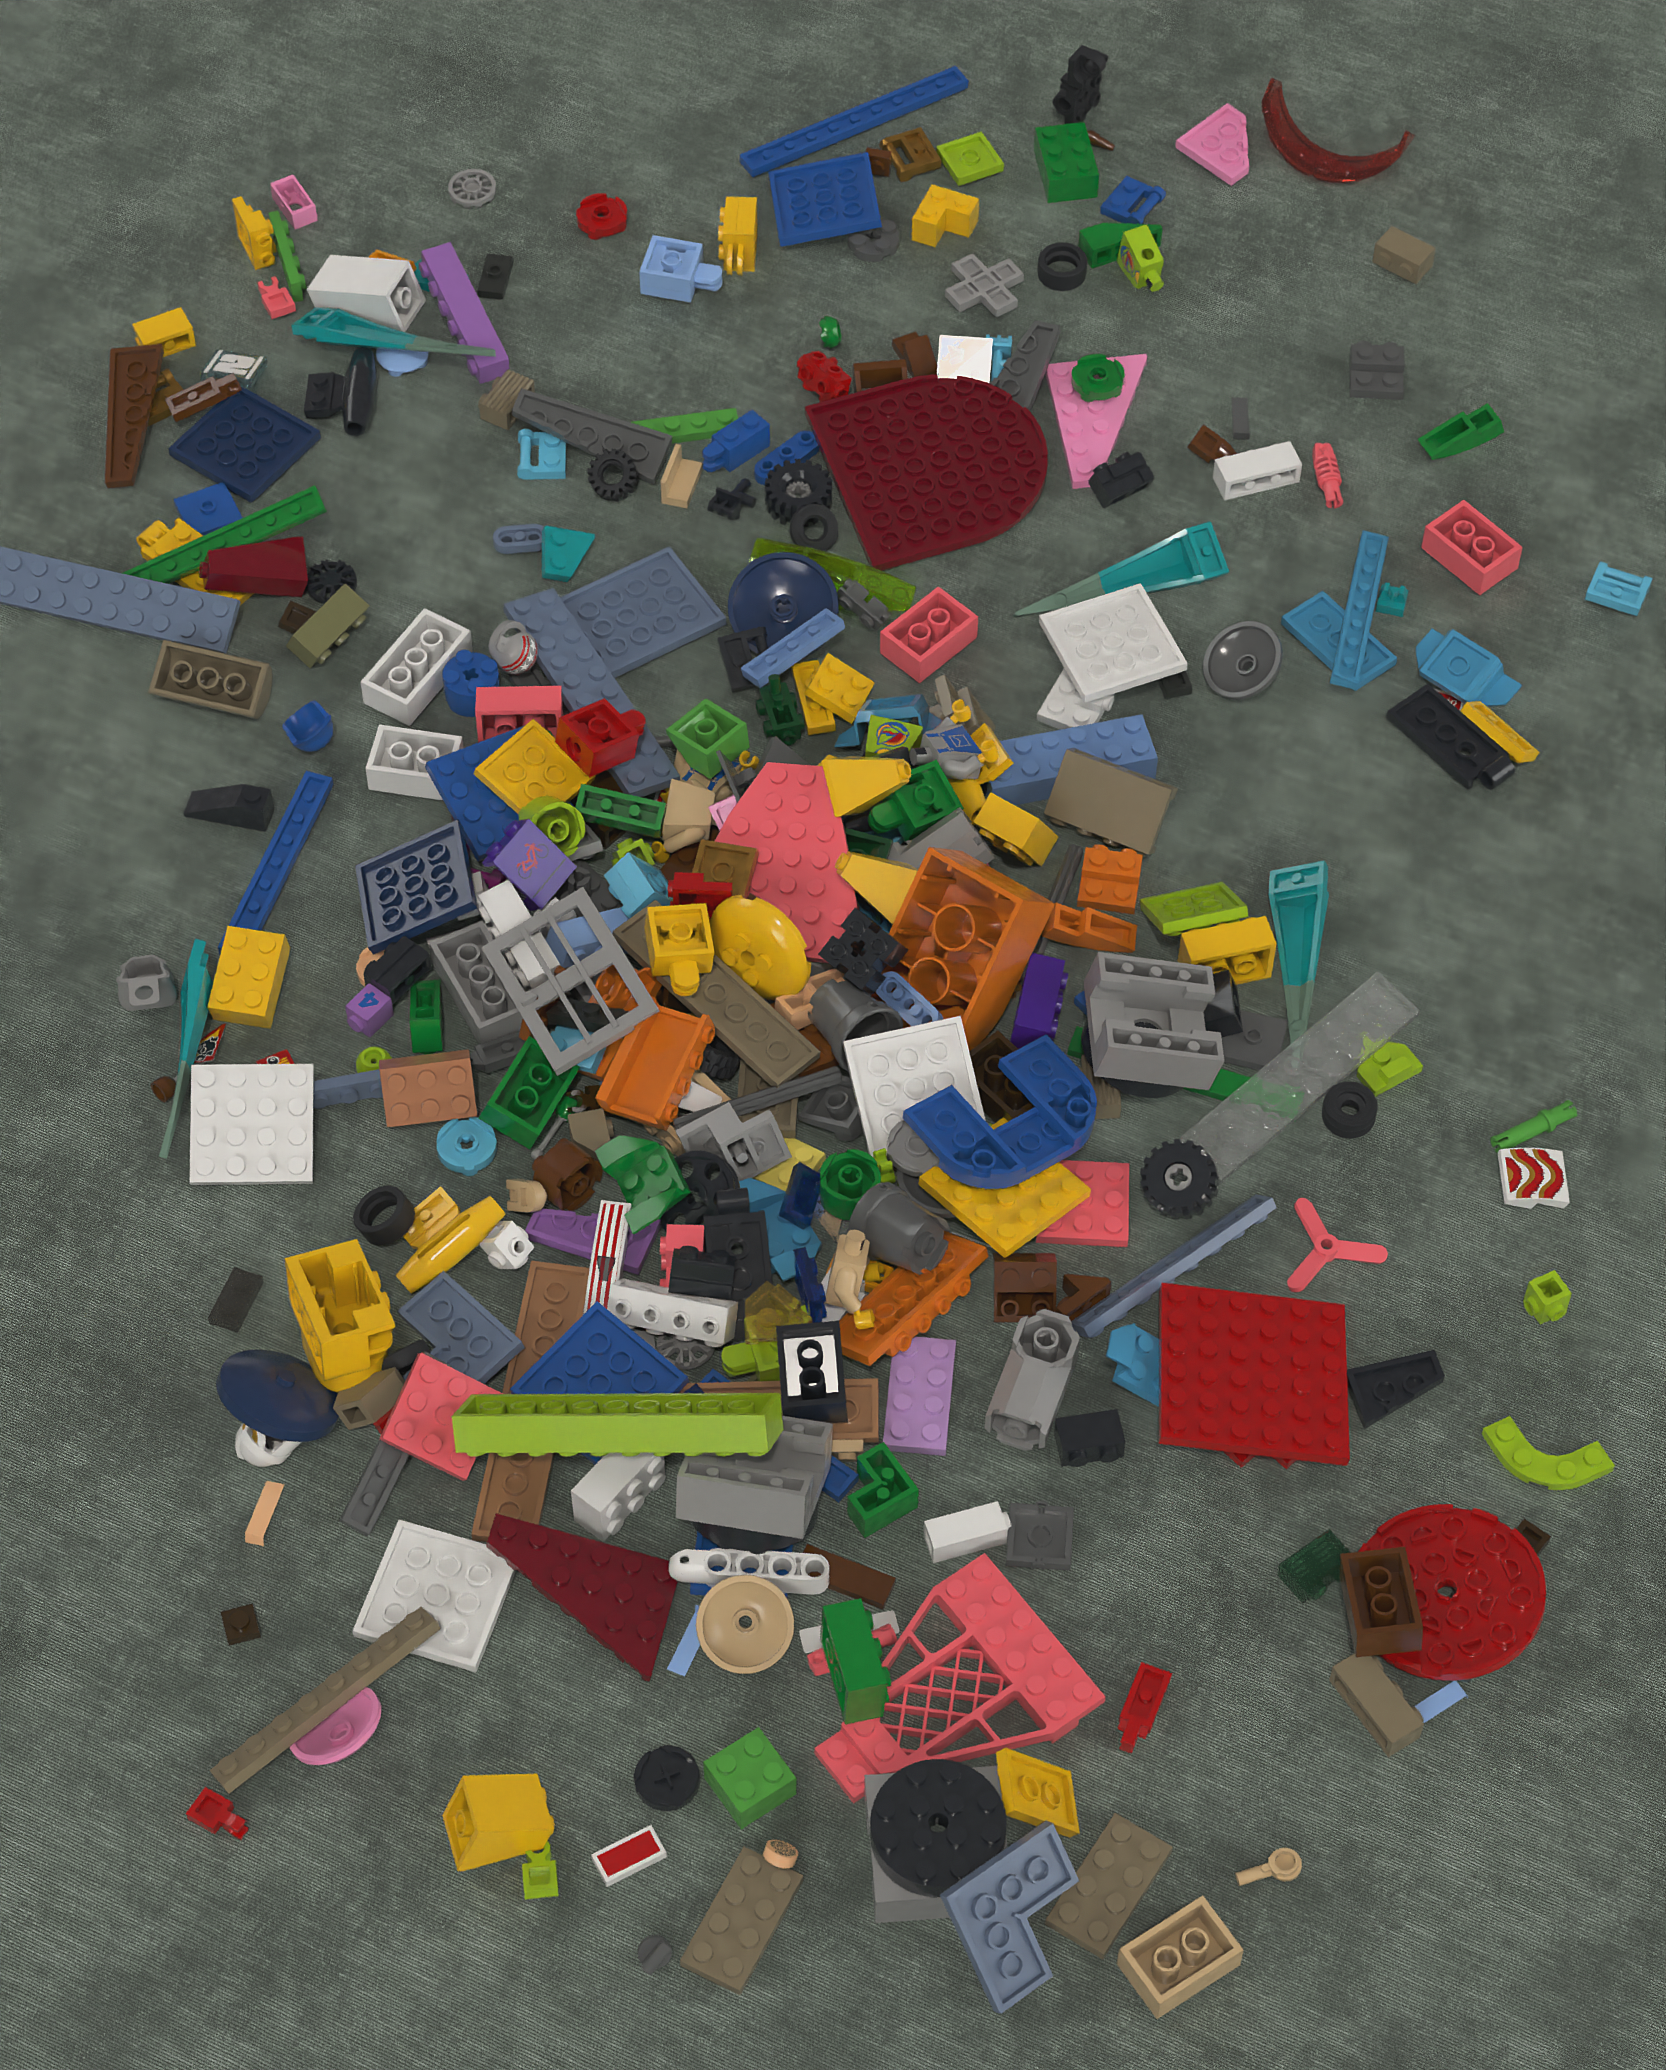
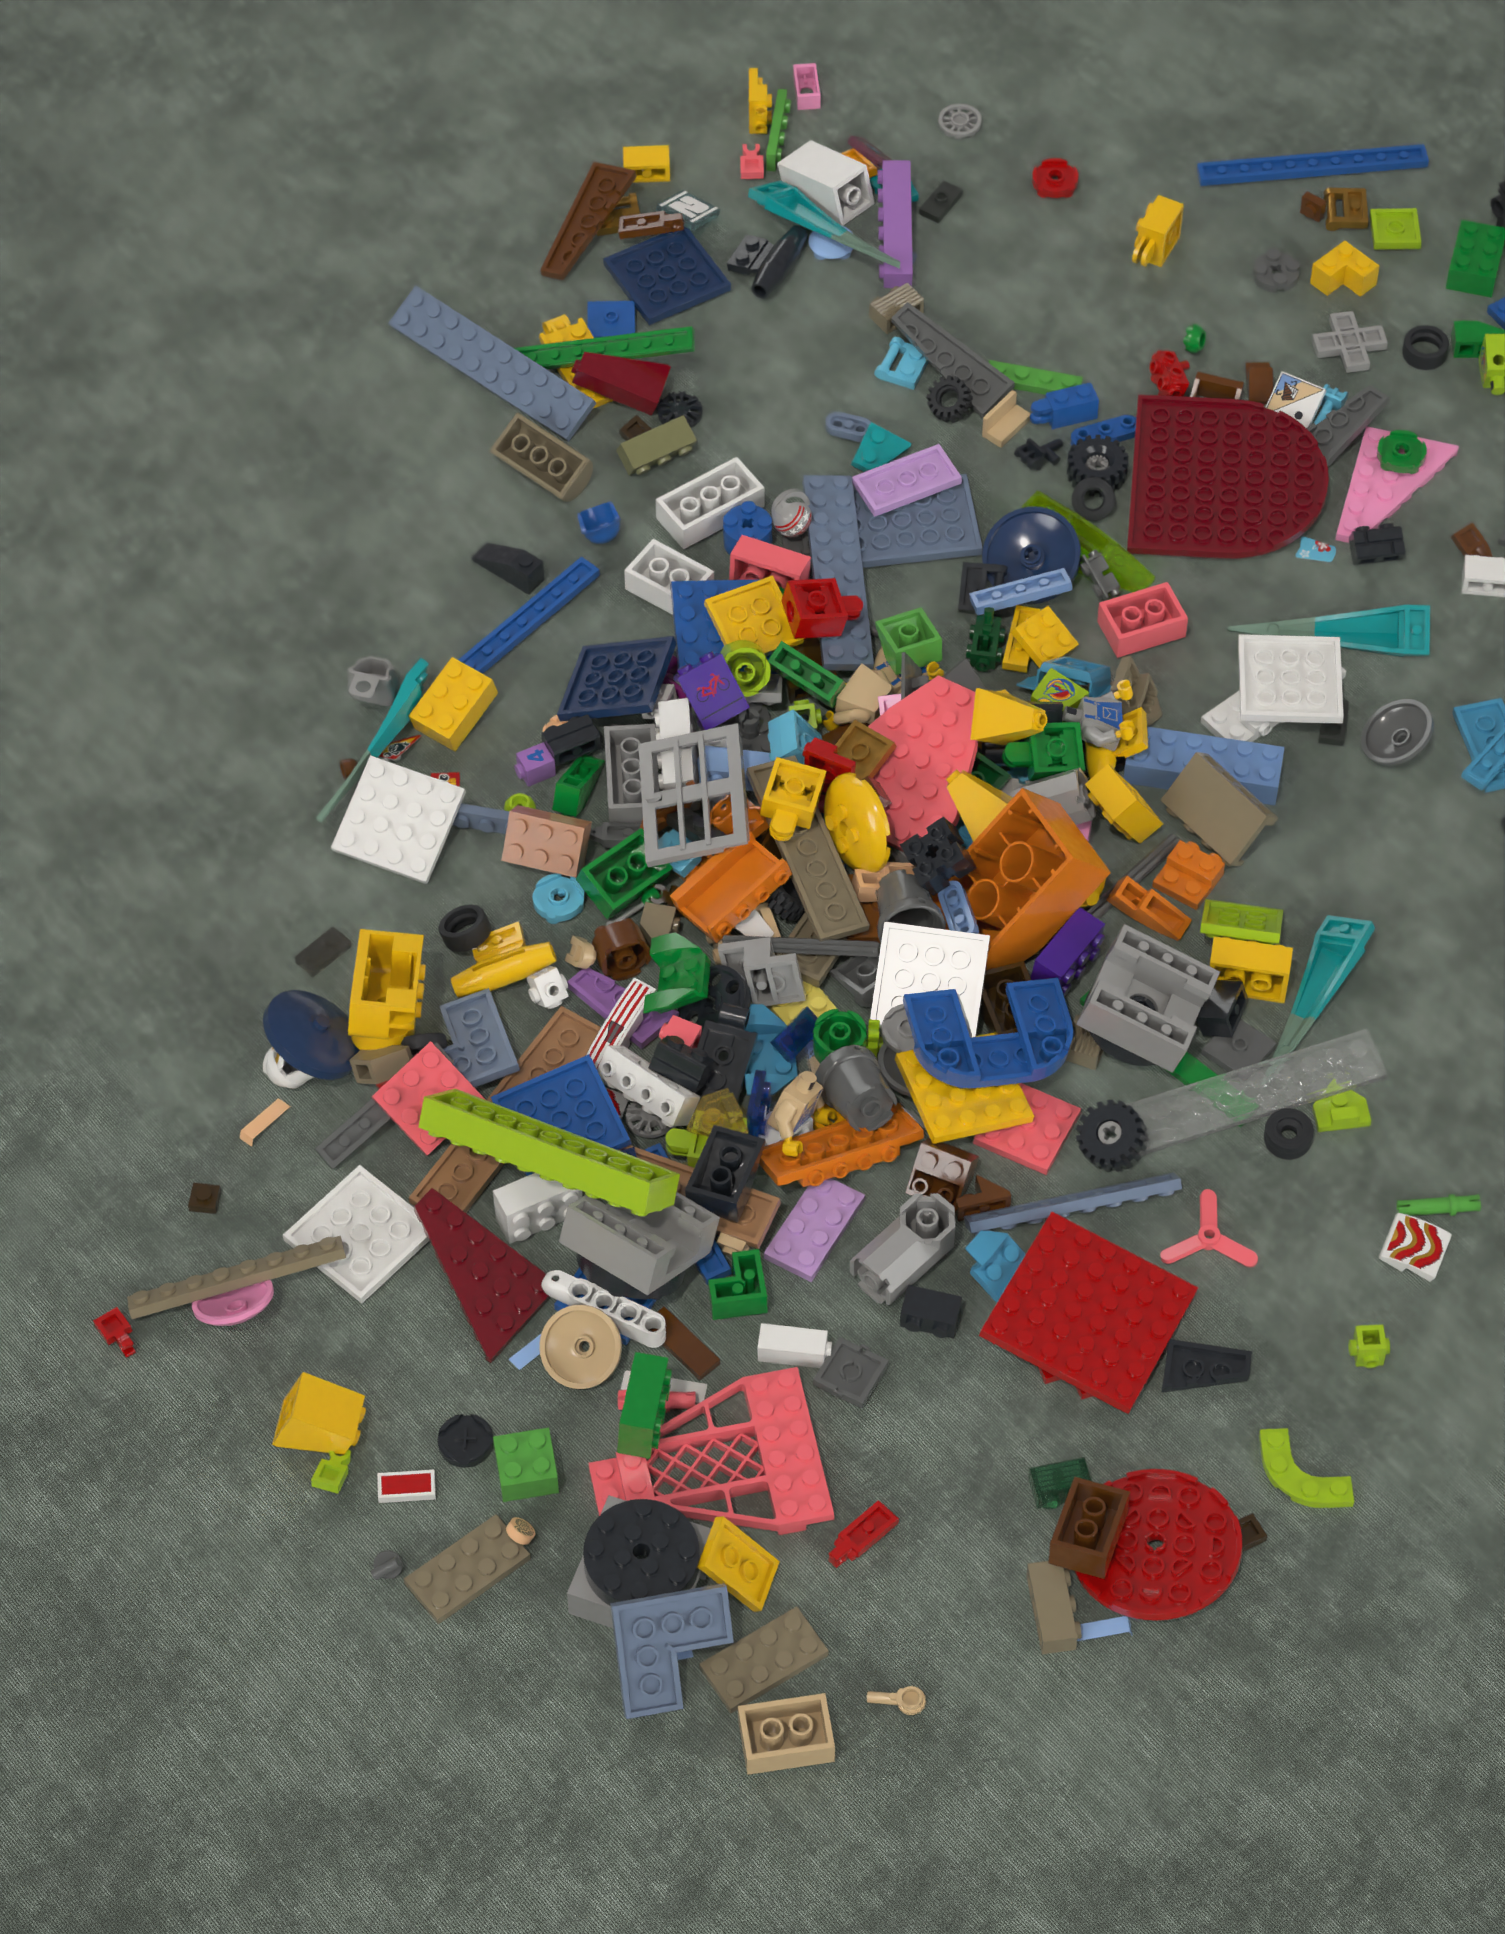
camera: 25 degrees right, 0 degrees up
(395, 248) = (868, 150): none -> clear pink tile
(613, 573) = (906, 480): none -> lavender plate
(676, 269) = (1090, 244): light blue brick -> none
(824, 199) = (1248, 224): blue plate -> none
(1059, 506) = (1315, 550): none -> medium azure sticker

